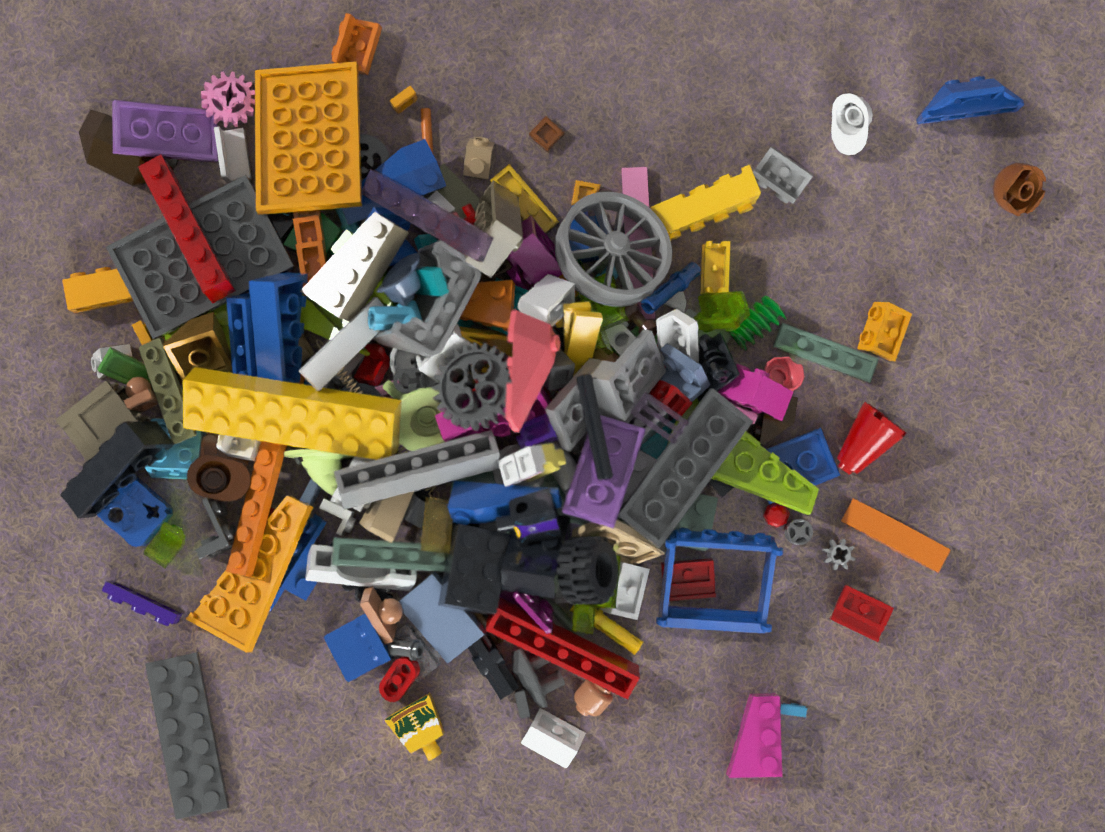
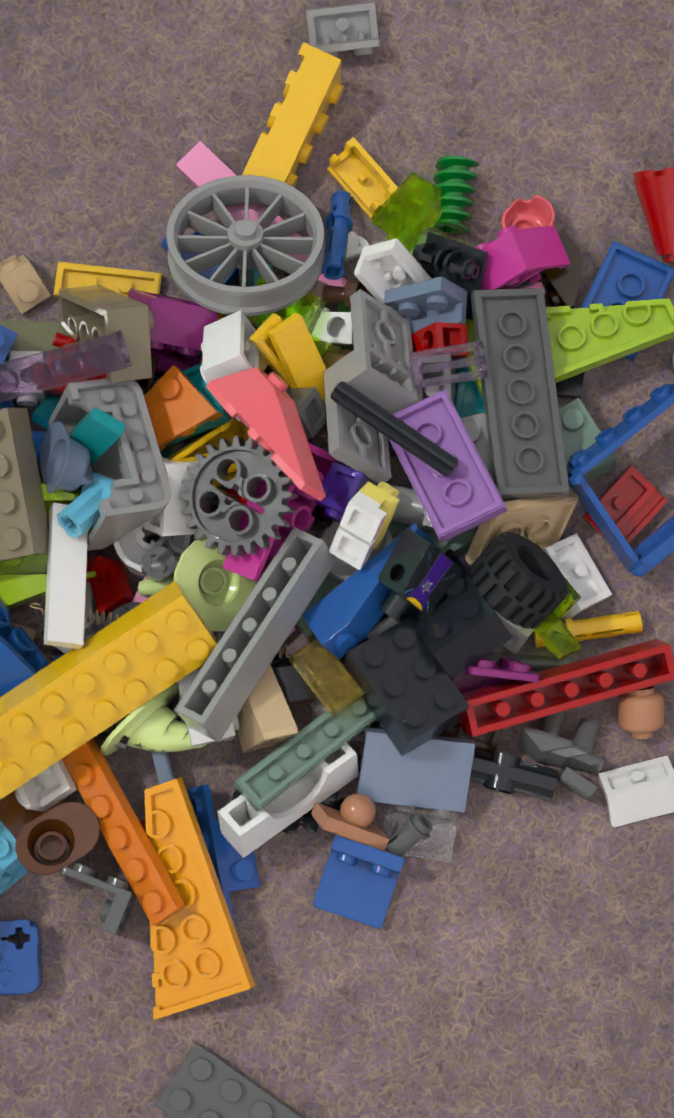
camera: 40 degrees left, 5 degrees down
(141, 603) = (93, 1046): dark purple plate -> none
(166, 544) = (63, 961): clear neon green bracket -> none
(336, 508) = (205, 762): white bracket -> none
(399, 676) = (429, 871): red plate -> none
(418, 726) = (494, 904): torso -> none
(546, 134) = (68, 199): dark orange tile -> none
(584, 189) = (157, 221): light orange tile -> none
(776, 515) = (650, 365): red tile -> none
(825, 352) = (548, 164): sand green tile -> none
(884, 330) = (585, 90): light orange bracket -> none

